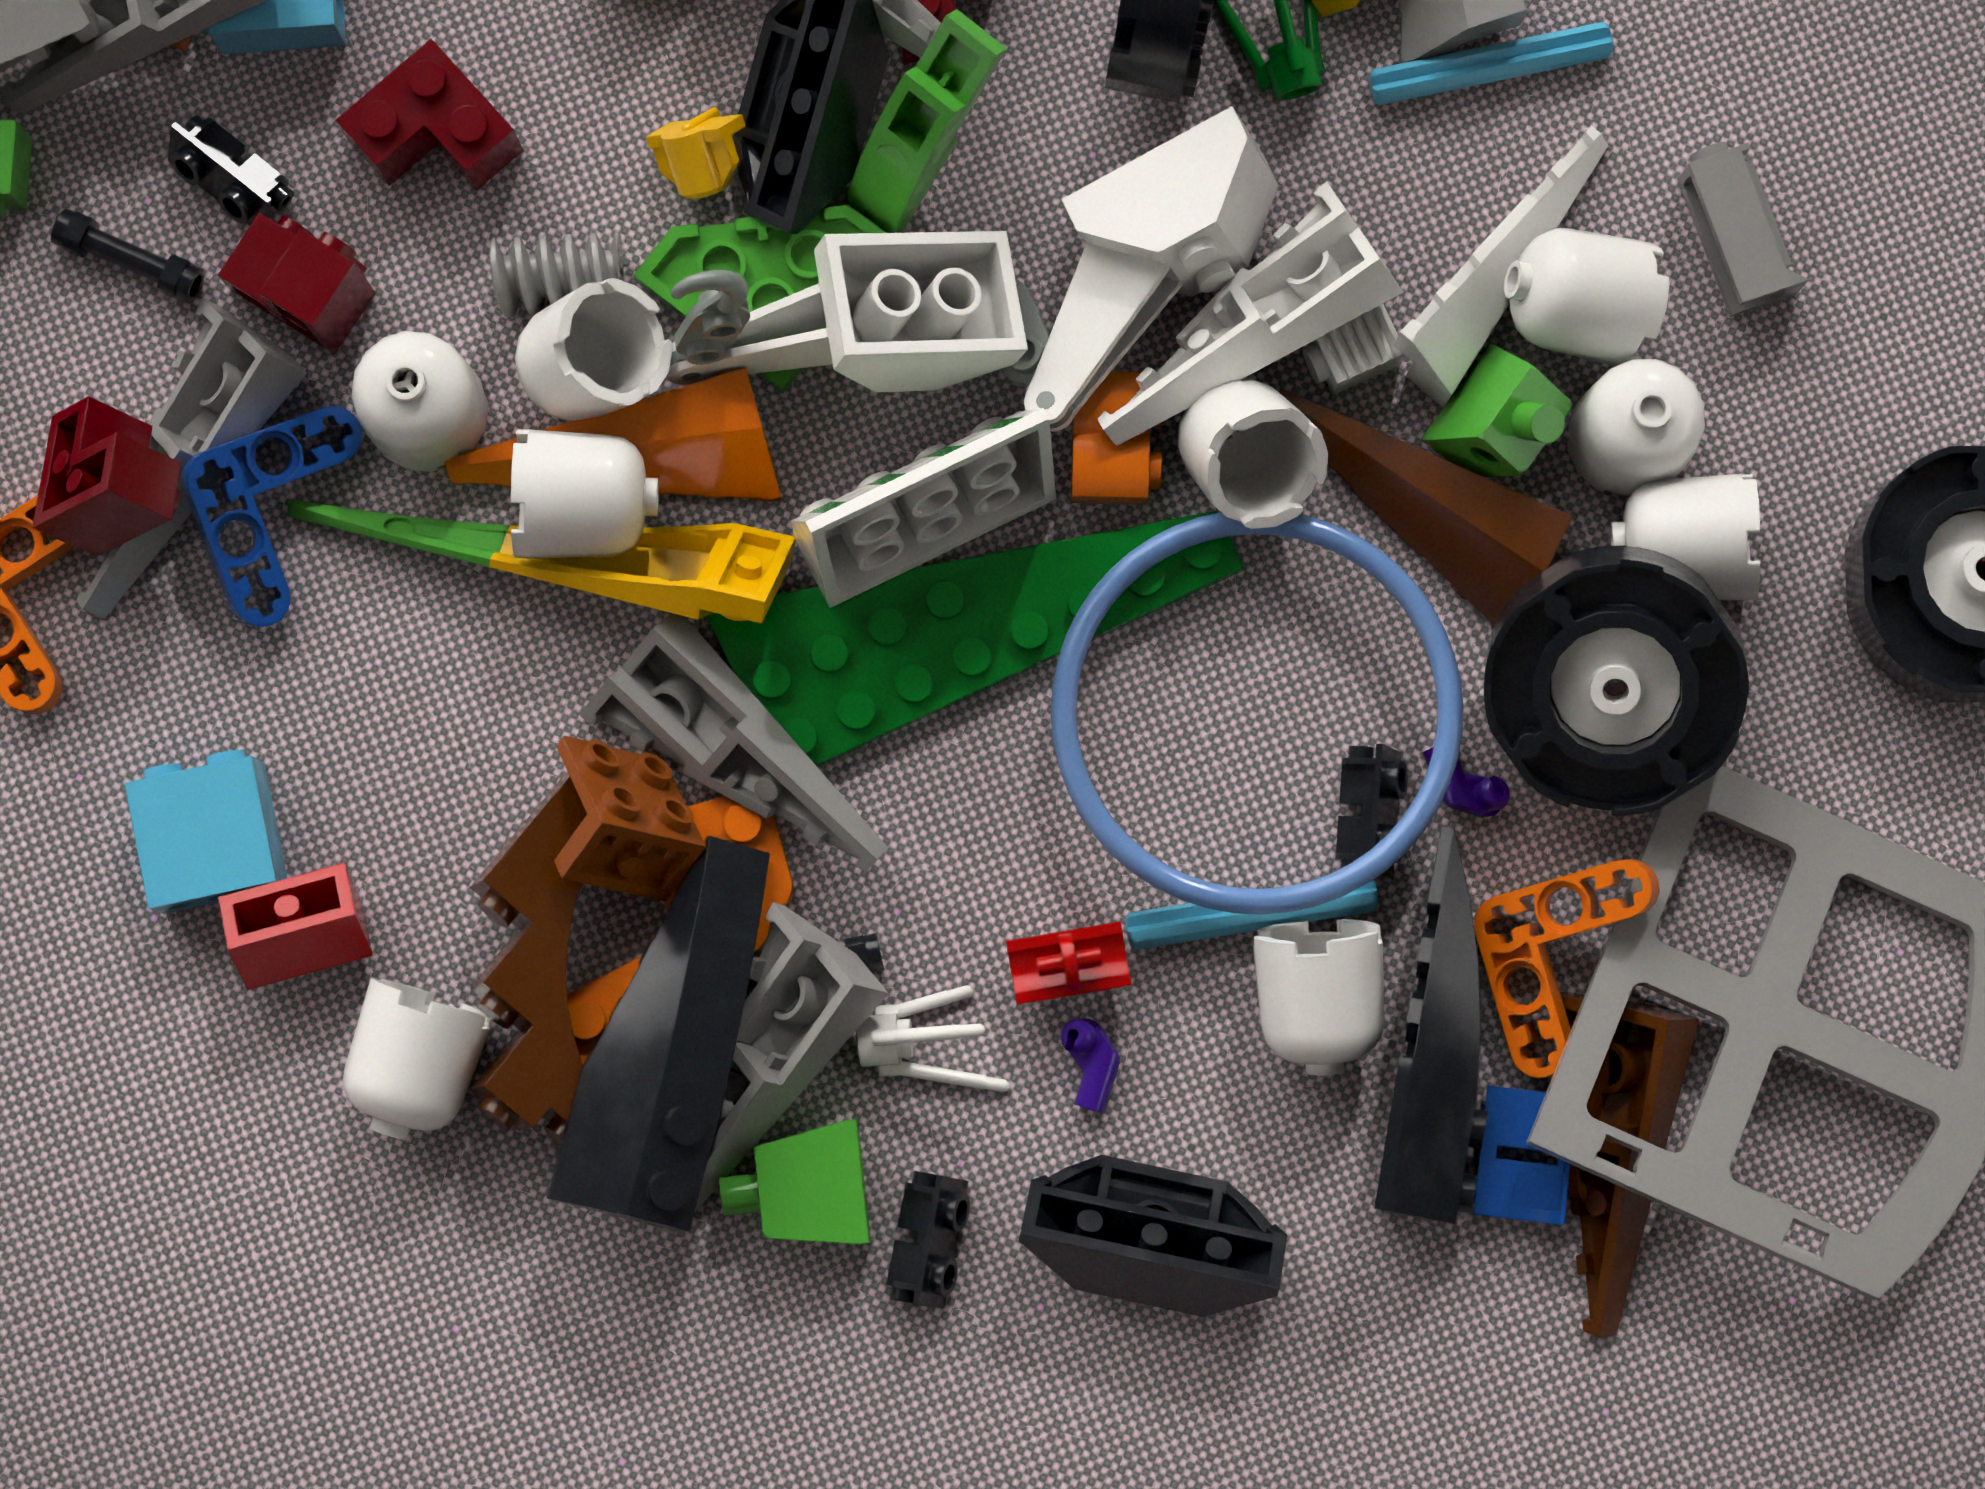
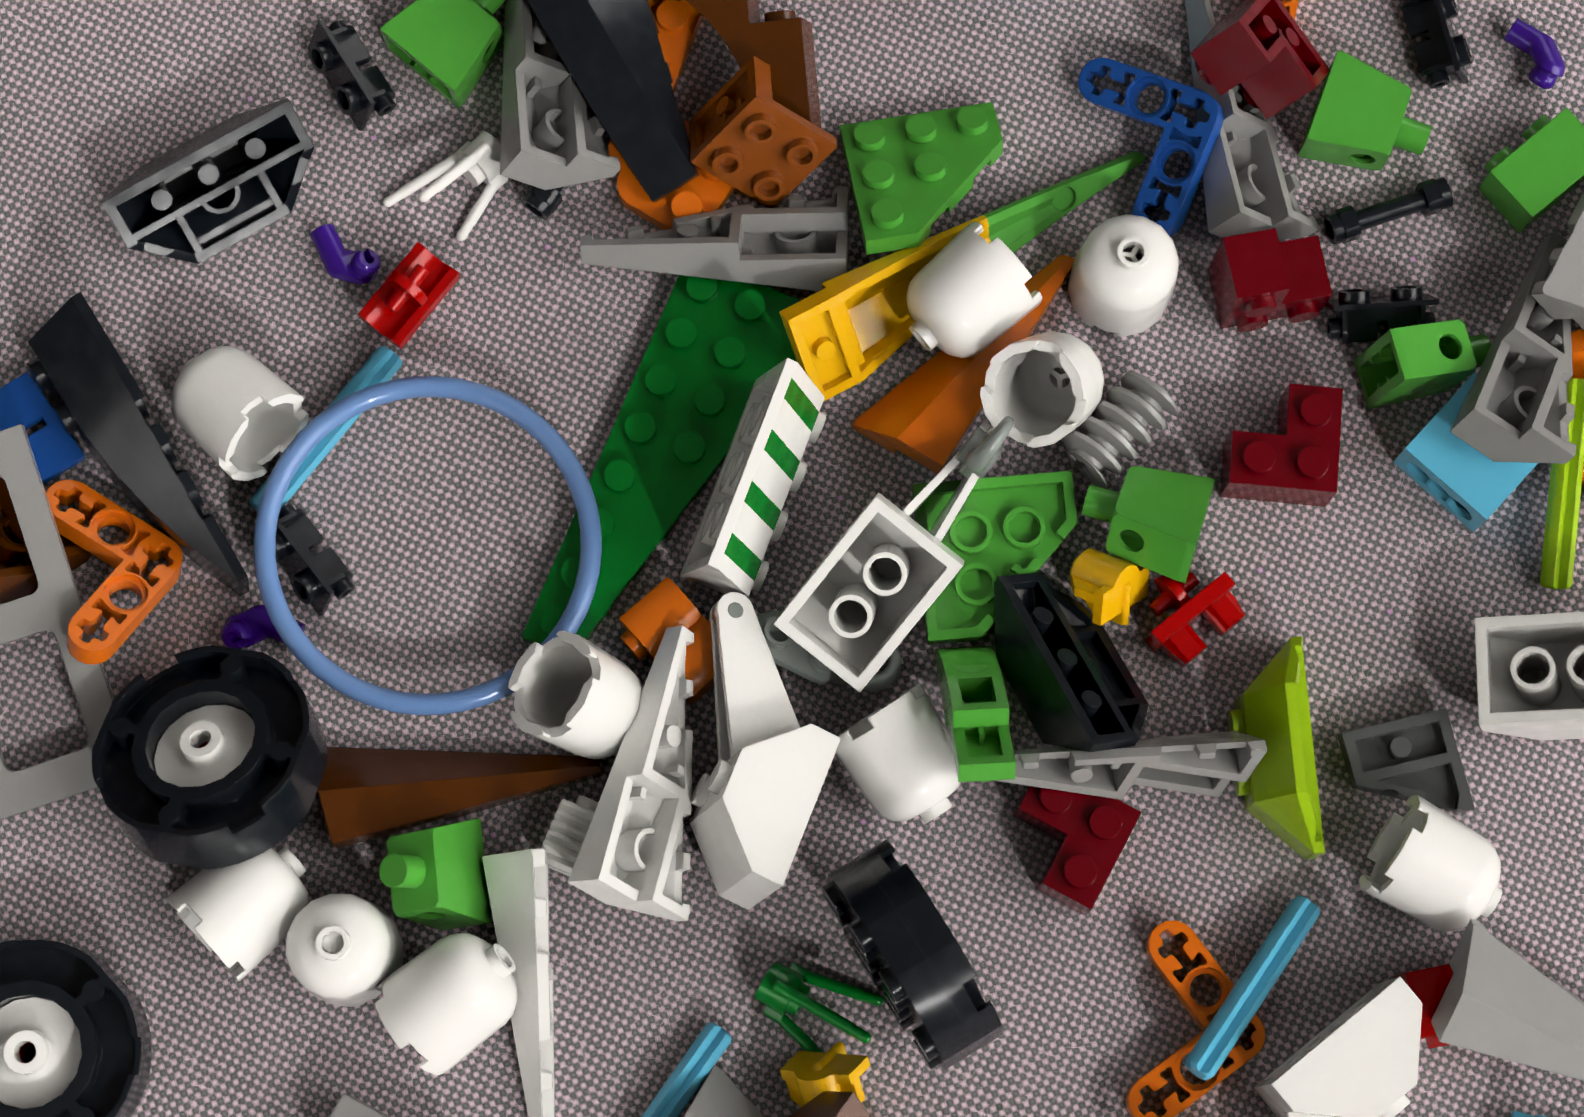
camera: 135 degrees right, 5 degrees down
(65, 353) = (1361, 117): none -> bright green torso
(243, 90) = (1419, 362): none -> bright green torso
(508, 666) = (915, 169): none -> bright green plate
(605, 162) = (1153, 518): none -> bright green torso
(651, 75) = (1174, 633): none -> red hips
(1015, 161) = (902, 758): none -> white cylinder

